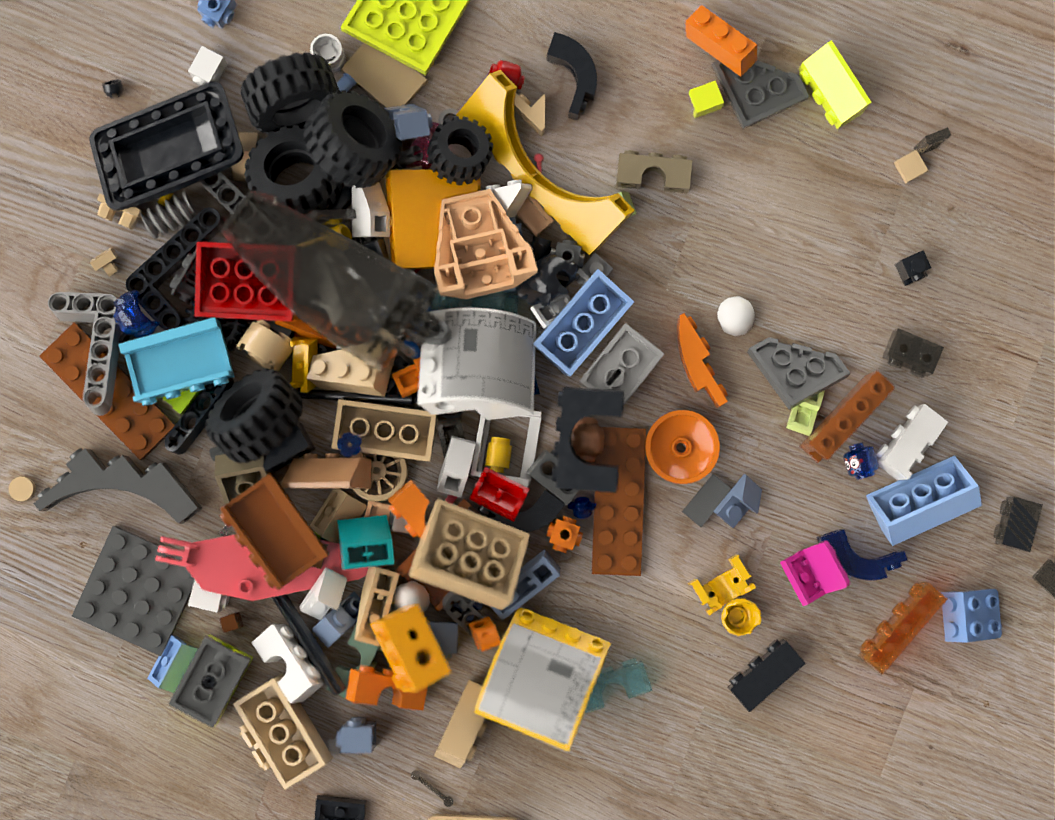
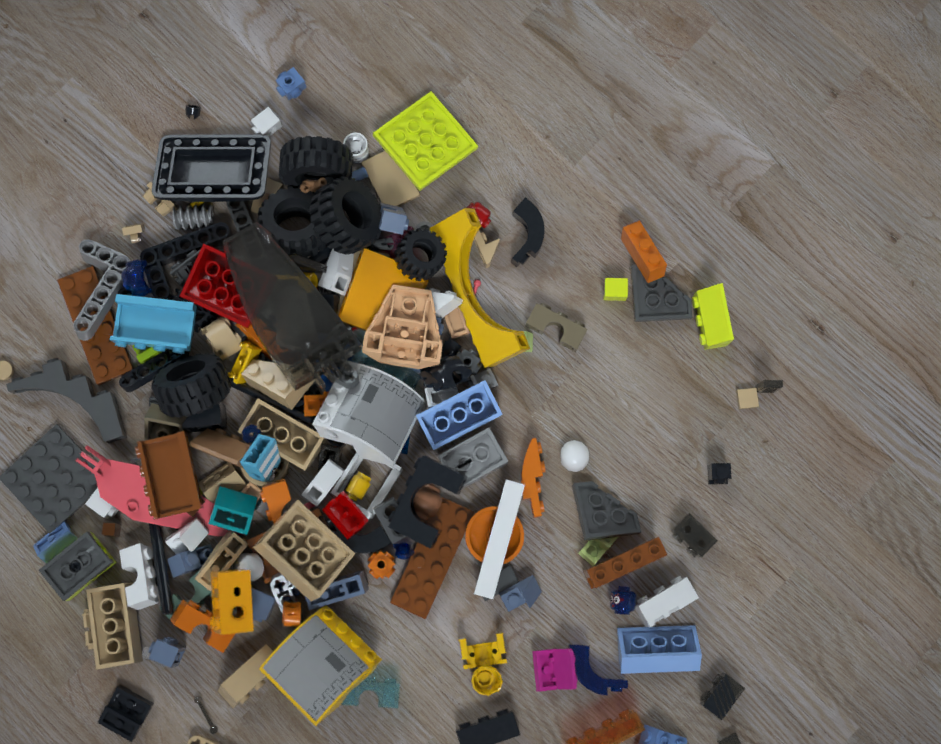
camera: 15 degrees right, 5 degrees down
(297, 118) = (312, 185): none -> medium nougat arm
(374, 468) = (262, 458): none -> medium azure torso
(690, 448) = (499, 539): none -> white tile

